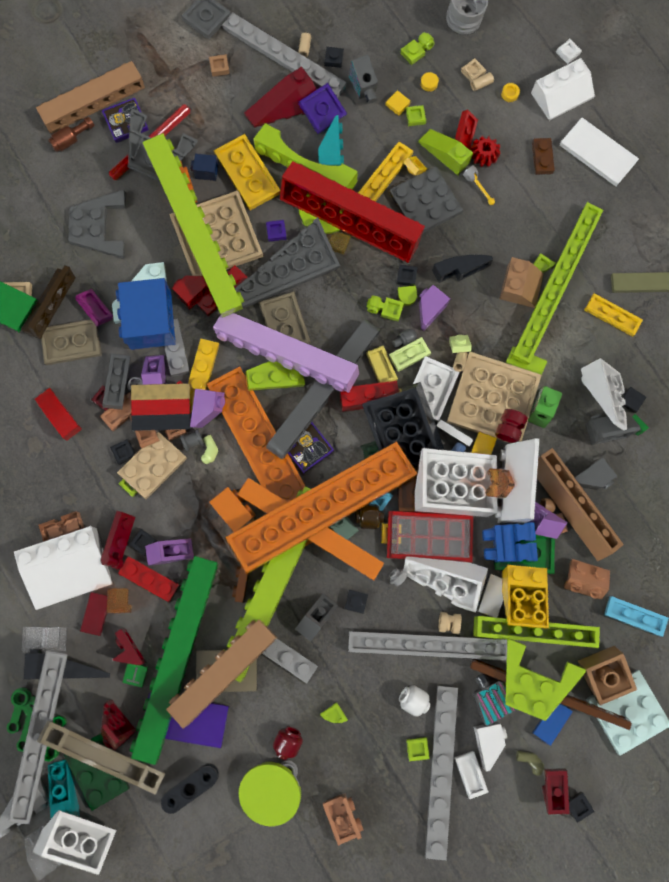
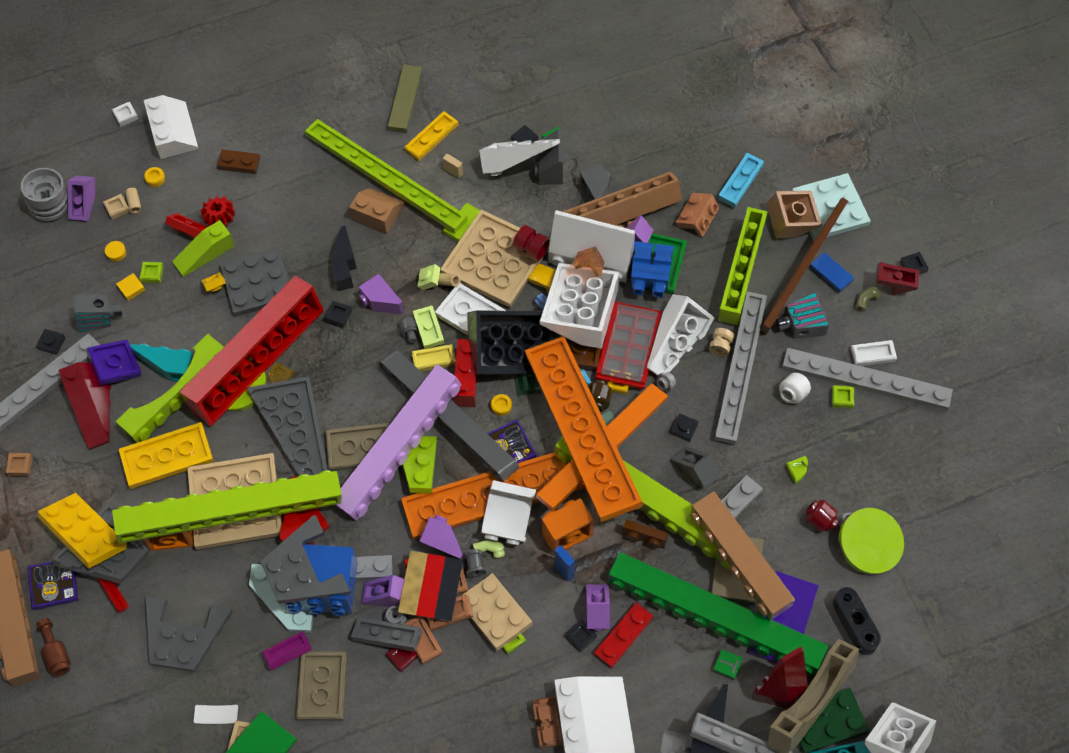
camera: 75 degrees left, 15 degrees down
(38, 267) = (215, 714): none -> white sticker
(49, 302) = (268, 701): dark brown fence -> none
(58, 414) = (409, 709): red slope -> none
(95, 614) = (653, 699): dark red tile -> none
(117, 540) = (574, 658): dark red plate -> none
(118, 600) = (643, 667): clear orange panel -> none
(123, 451) = (470, 643): black tile -> none
(131, 654) = (703, 662): dark red slope -> none
(137, 288) = (292, 573): none -> dark grey wing
(168, 117) = (81, 530): none -> yellow plate
(199, 515) = (564, 562): none -> blue tile
(202, 367) = (392, 541): yellow plate -> none
(205, 167) = (146, 493): dark blue brick -> none
(238, 458) = (507, 512): none -> white panel
(276, 230) = (248, 436): dark purple plate -> none
(304, 44) = (24, 368): tan piece -> none
(341, 818) = (903, 475): nougat bracket -> none
(347, 433) = (501, 405): none -> yellow tile
(386, 172) = (211, 311): yellow plate -> none
(390, 309) = (370, 336): lime plate -> none
(407, 295) = (360, 318): lime tile -> none
(415, 51) = (71, 259): lime plate -> none
(454, 432) = (528, 296): white tile -> none
(471, 175) = (240, 230): hinge -> none
(474, 38) = (80, 197): none -> medium lavender slope
(490, 743) = (846, 329): white slope -> none
(492, 597) = (703, 298): white tile -> none
(525, 596) = (705, 265): yellow slope -> none
(533, 691) = (801, 274): lime wing -> none
(543, 263) = (358, 185): lime tile -> none
(544, 404) = (515, 209): bright green torso -> none
(583, 340) = (453, 166): none -> tan tile
(599, 152) = (249, 111): white tile -> none

